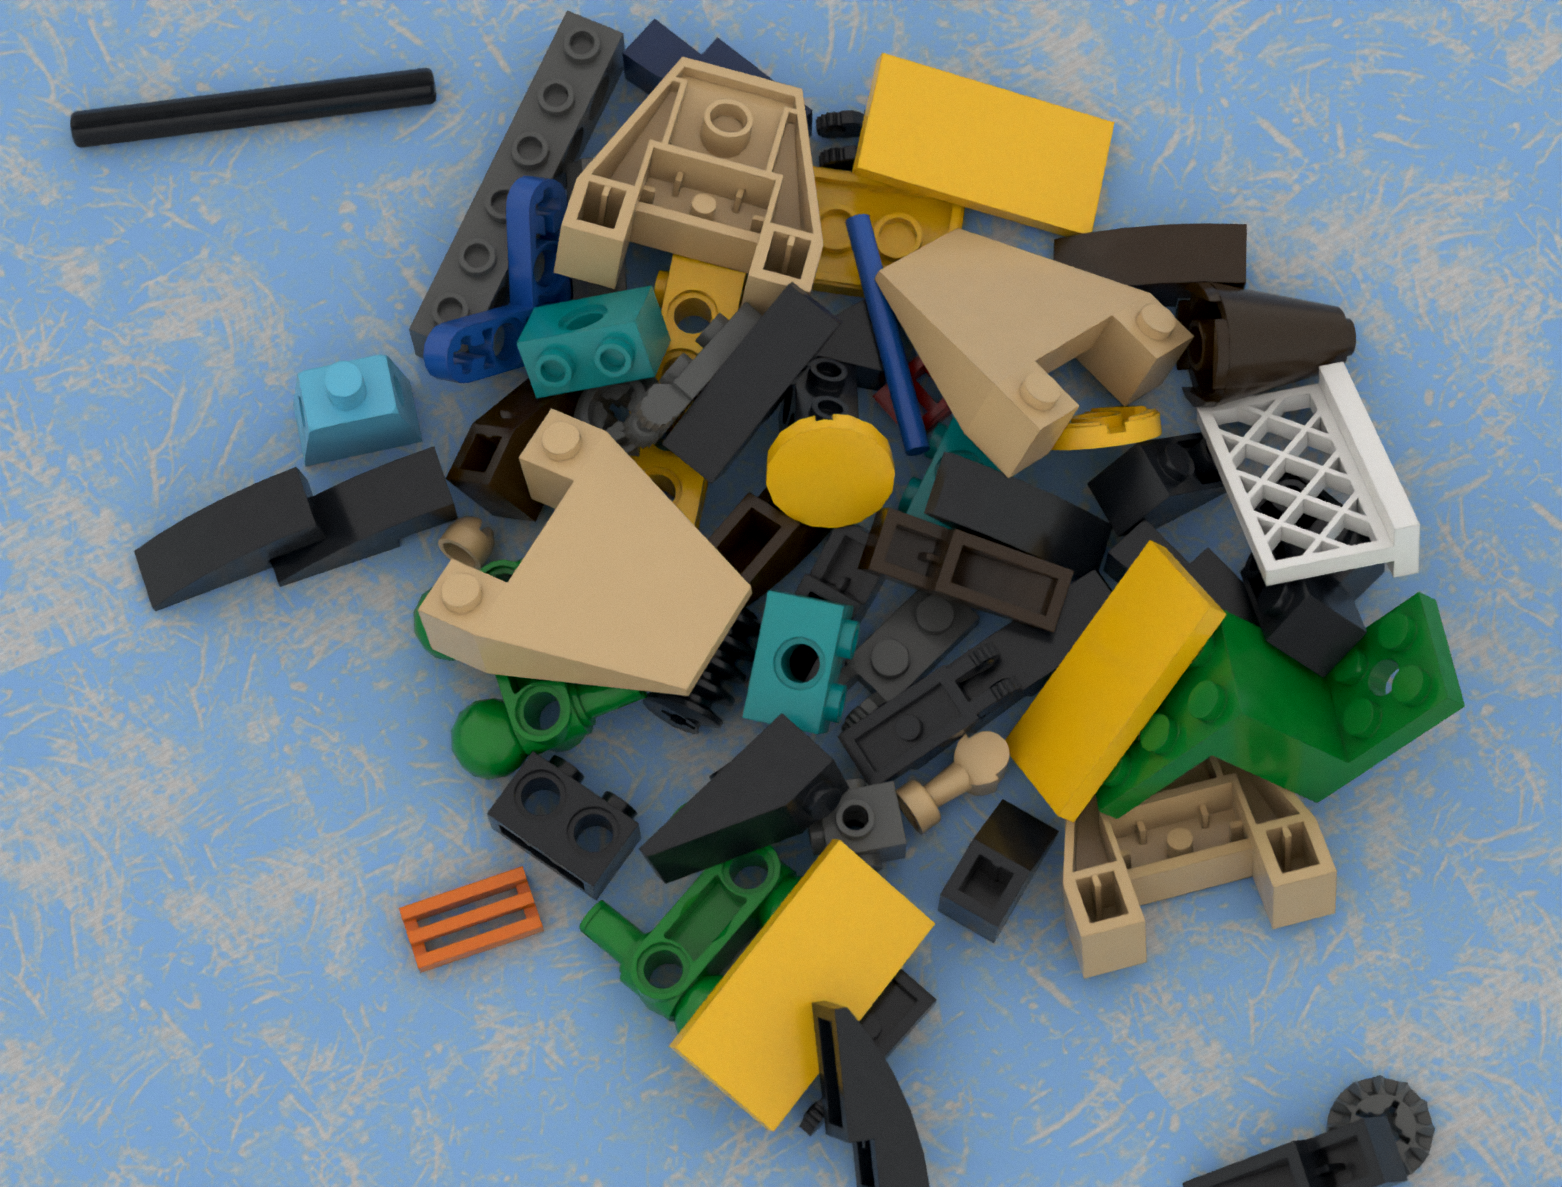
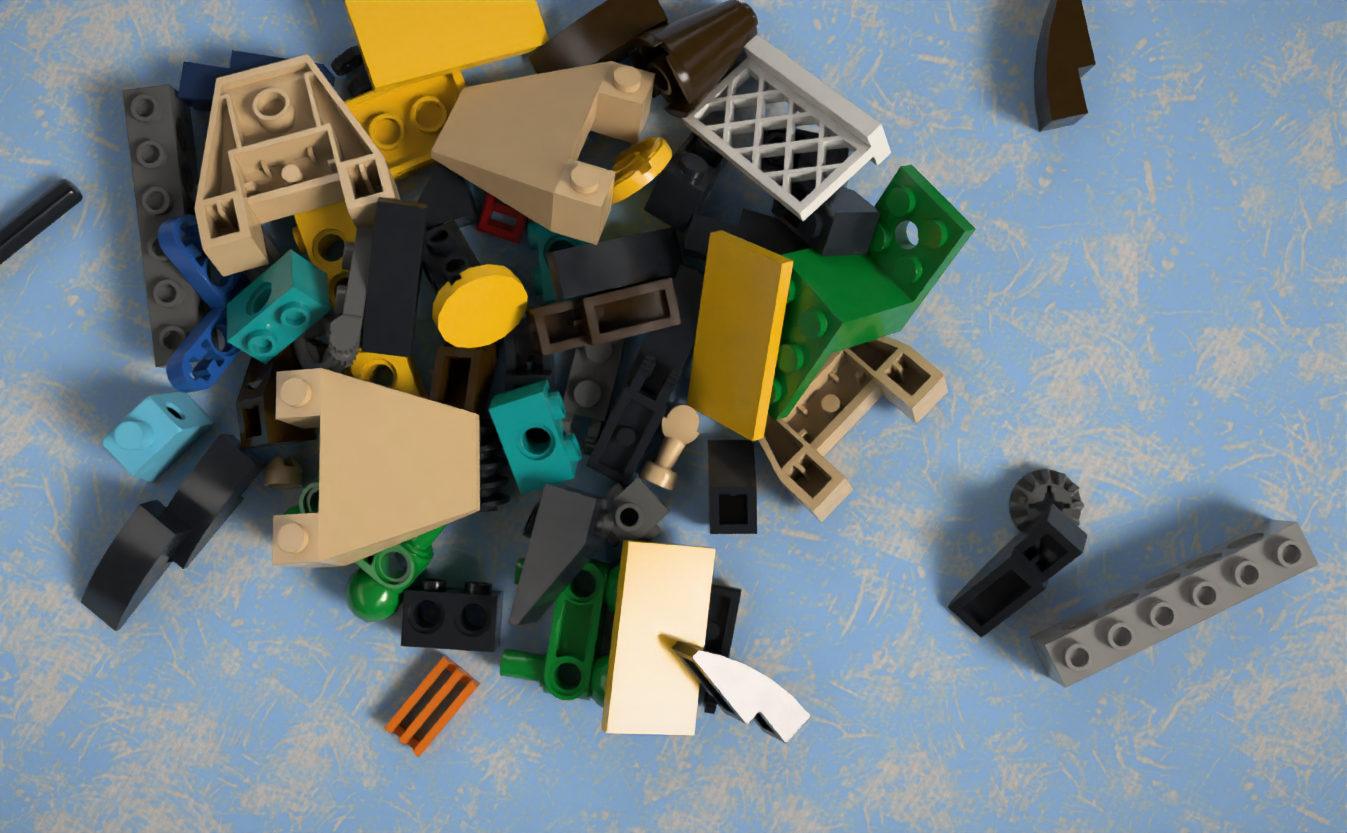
camera: 35 degrees left, 15 degrees up
(887, 337) = (462, 189): blue bar -> none

